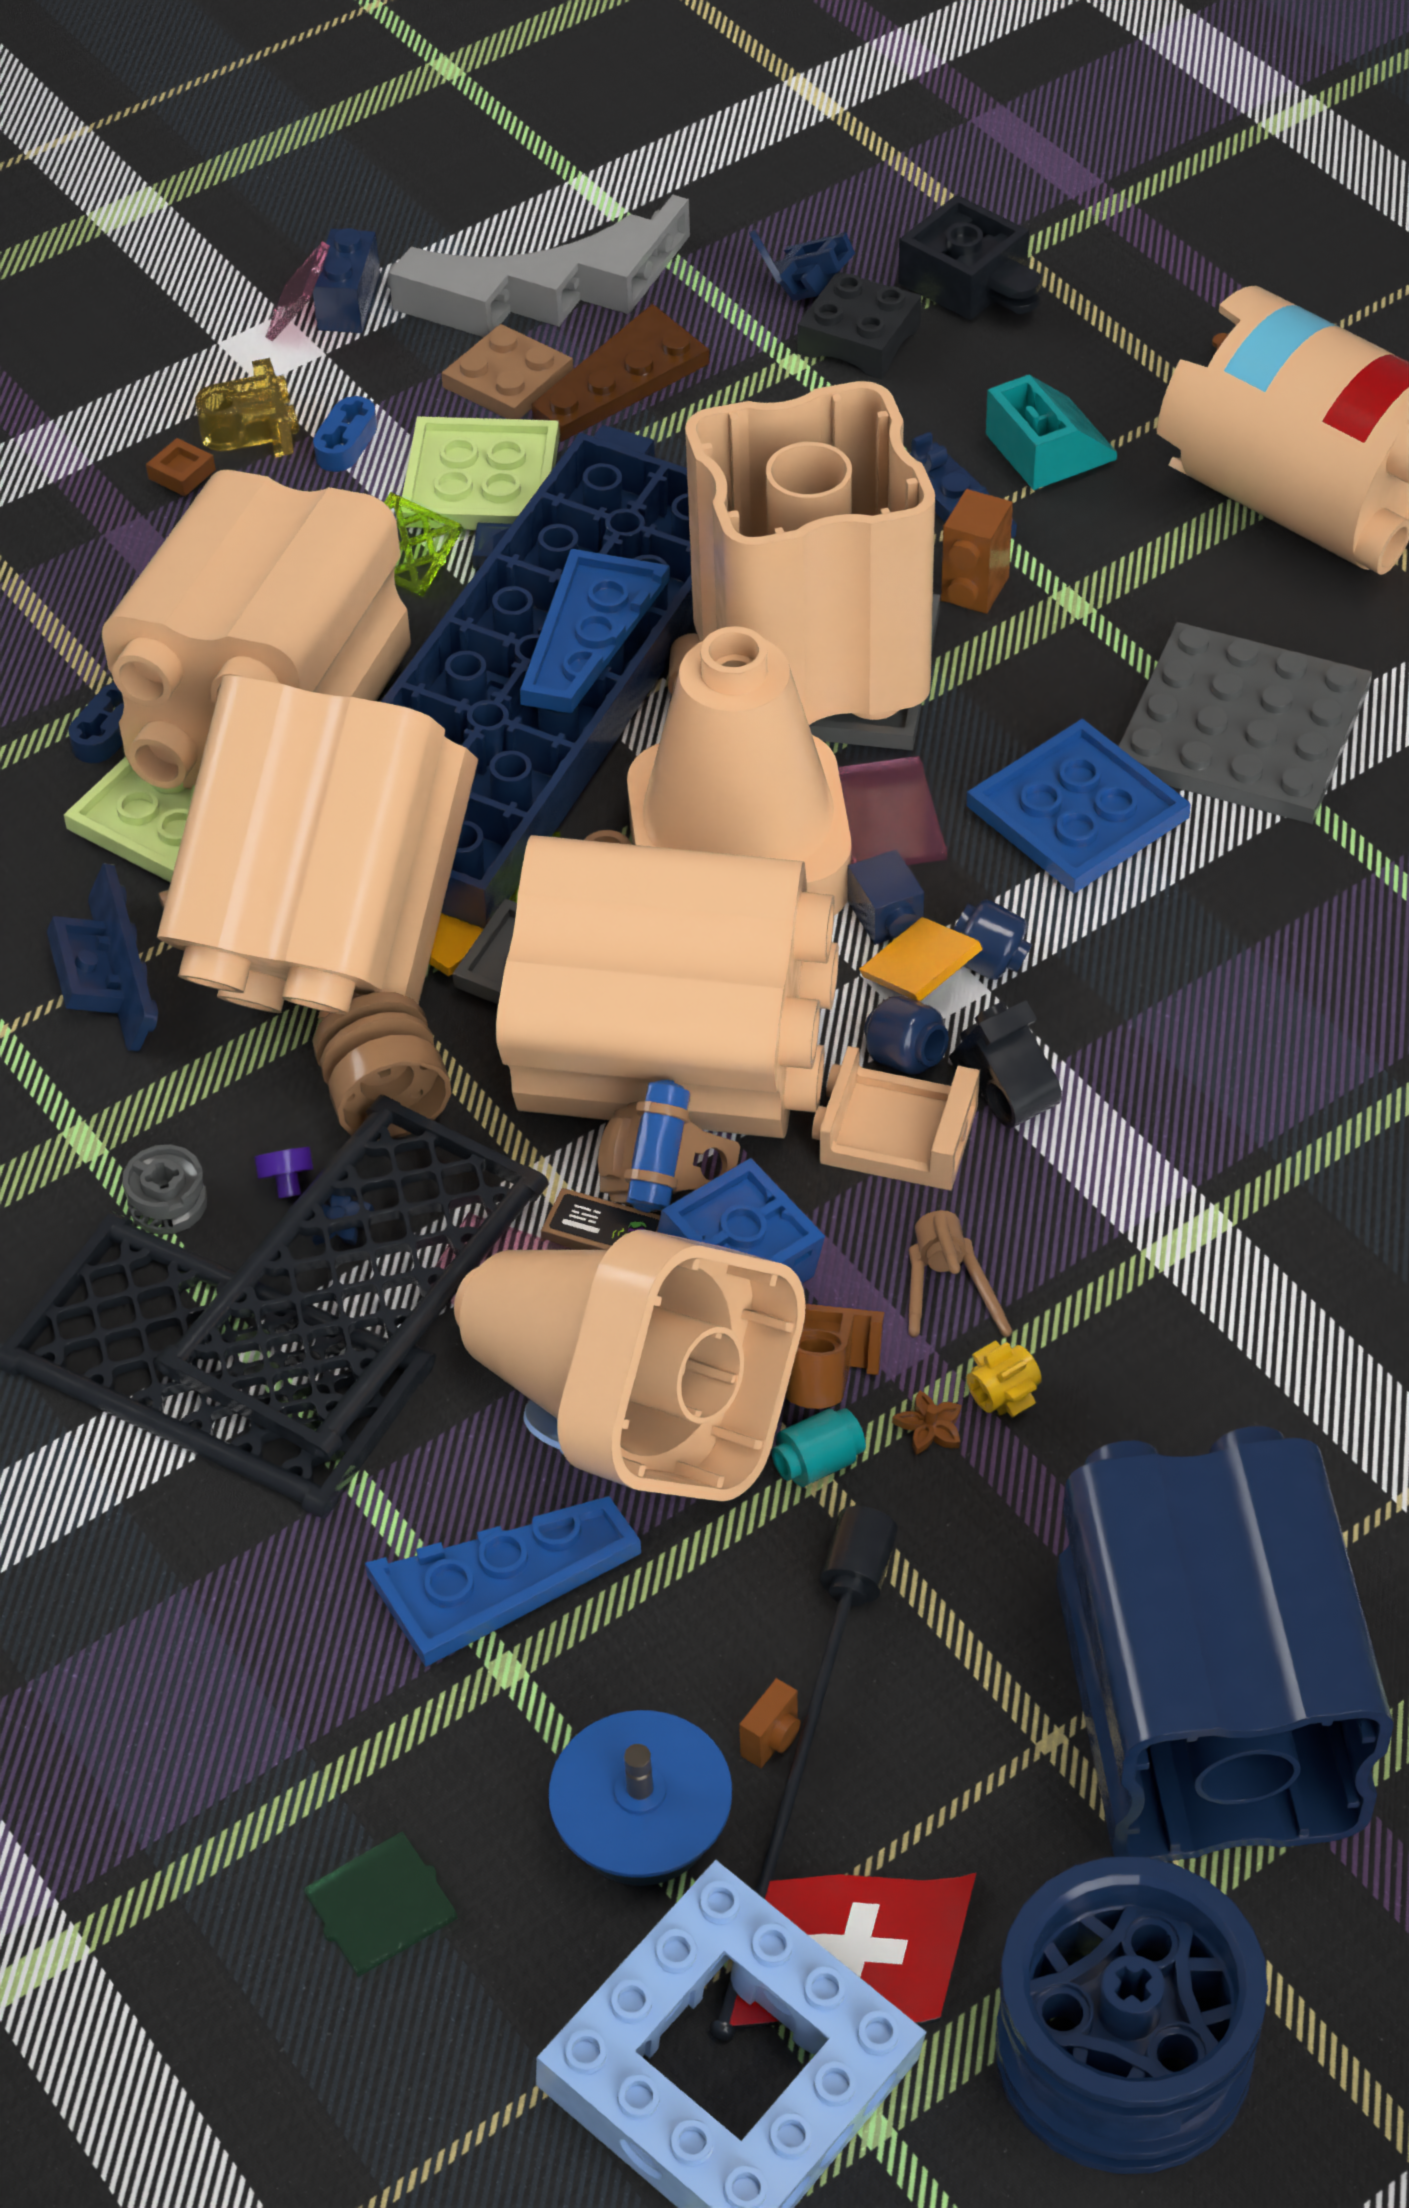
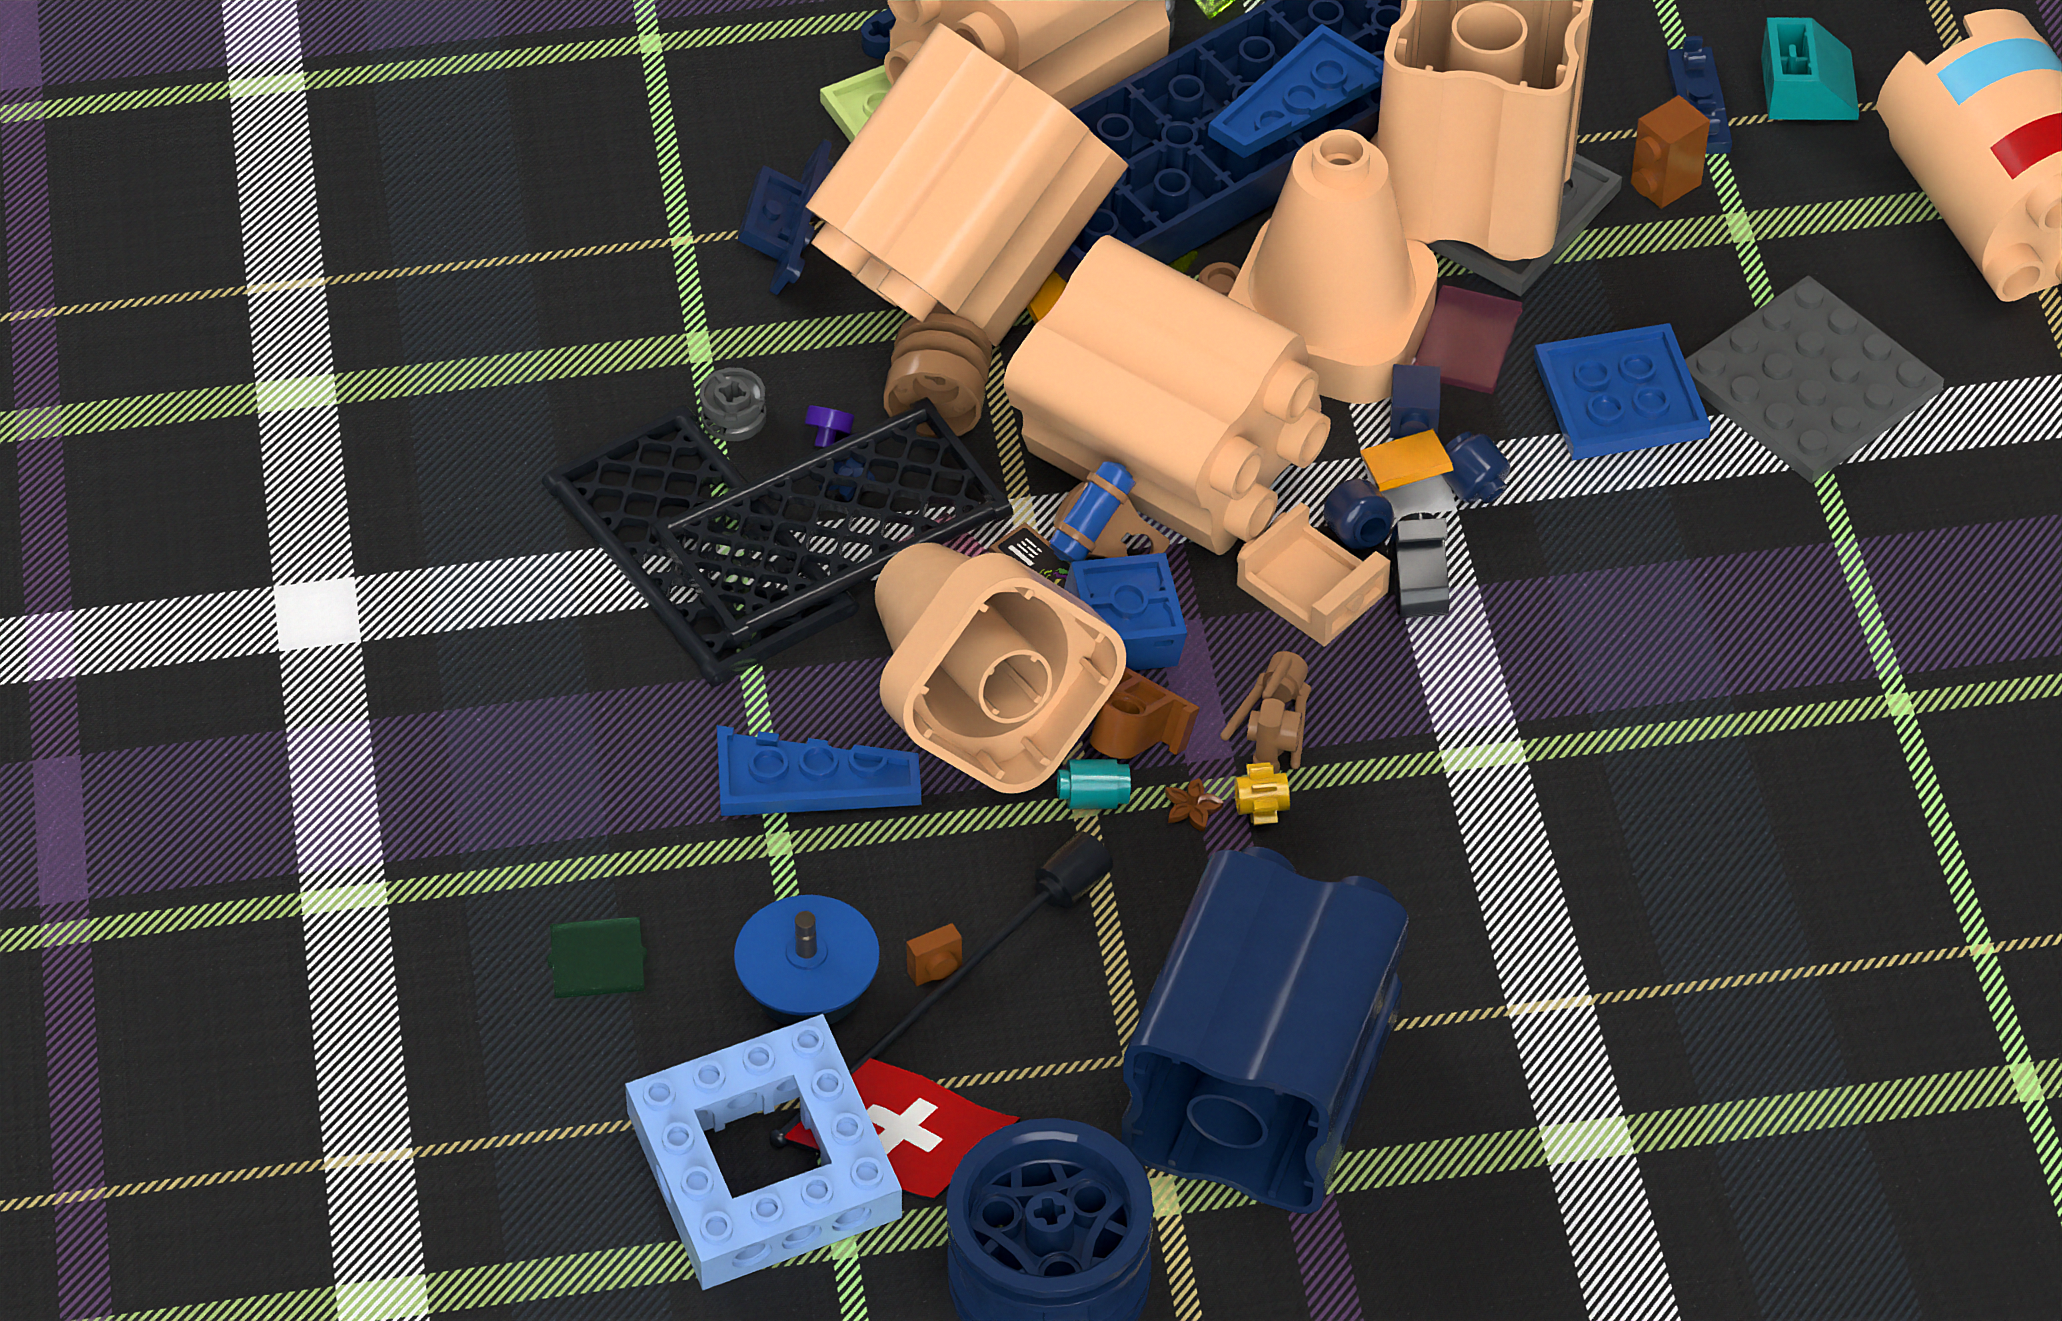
camera: 25 degrees right, 0 degrees up
(977, 1305) = (1274, 731): none -> medium nougat plate

